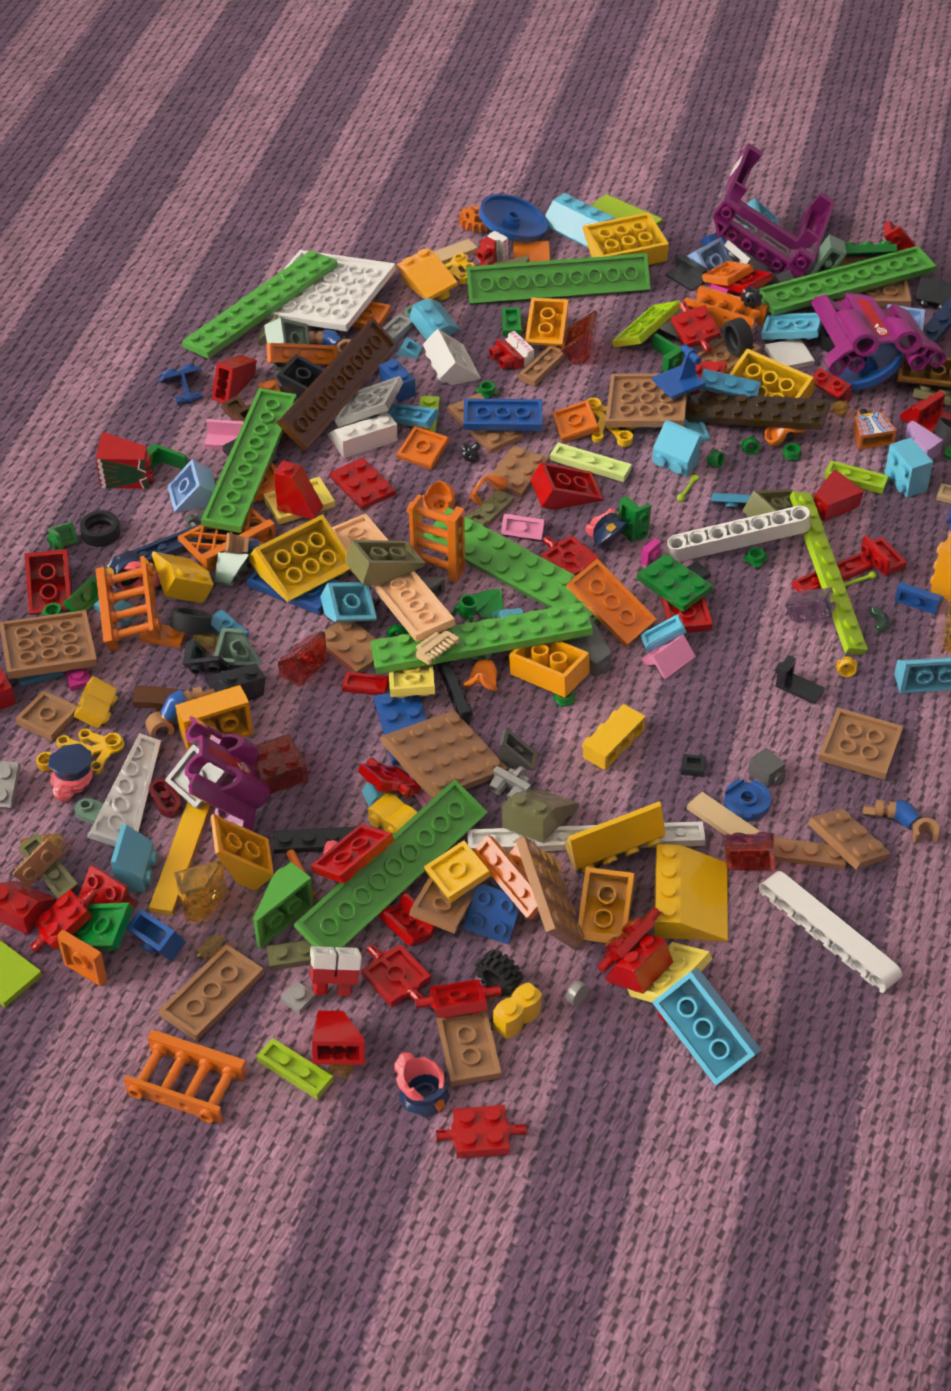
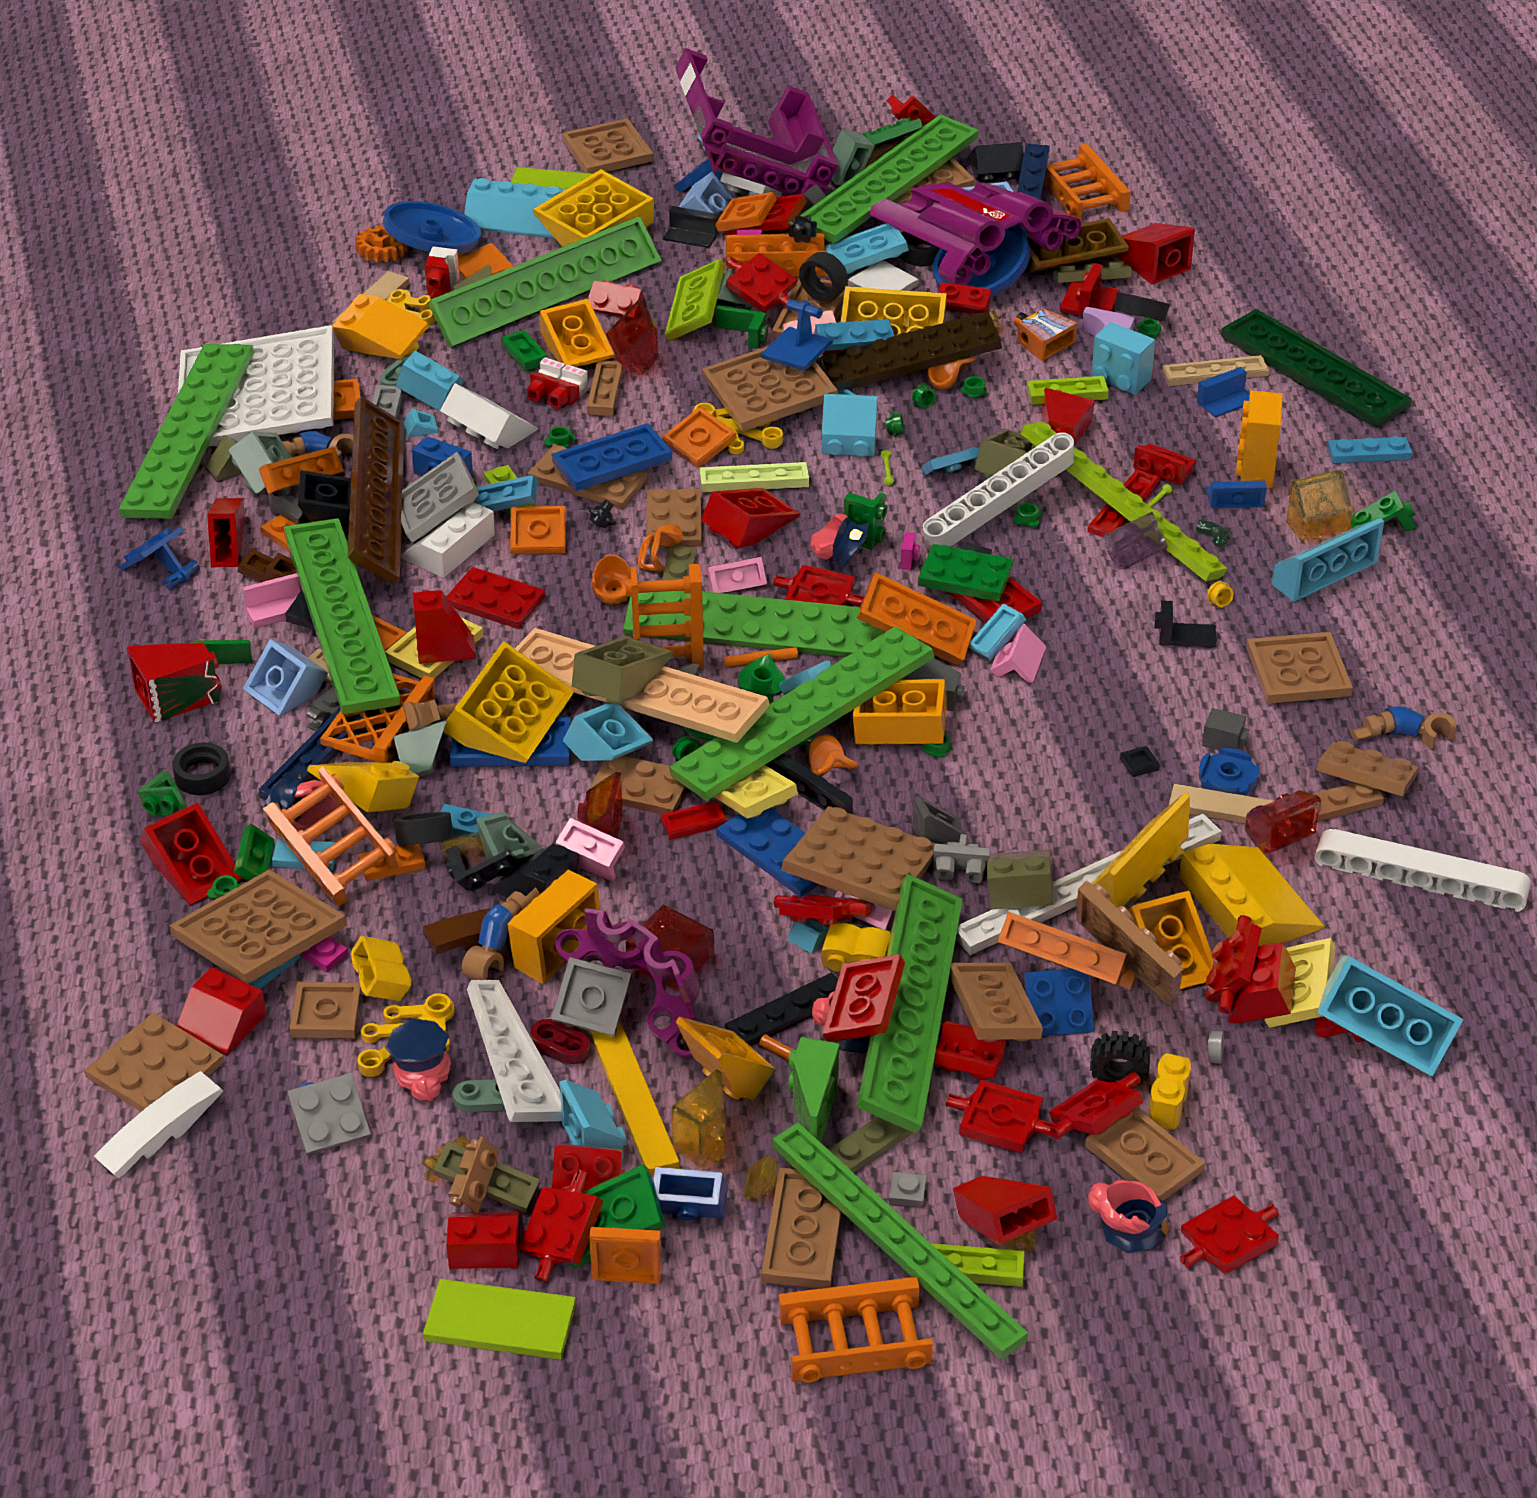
camera: 30 degrees left, 5 degrees down
(255, 1032) = (901, 1241): none -> bright green plate
(277, 674) = (595, 849): none -> bright pink panel
(334, 967) = (935, 1132): hips -> none
(435, 645) = (765, 737): tan piece -> none
(457, 871) = (996, 968): yellow plate -> none
(505, 590) = (745, 659): none -> orange piece
(595, 301) = (612, 298): none -> bracket
(613, 736) = (1031, 764): yellow brick -> none
(676, 198) = (607, 146): none -> medium nougat plate

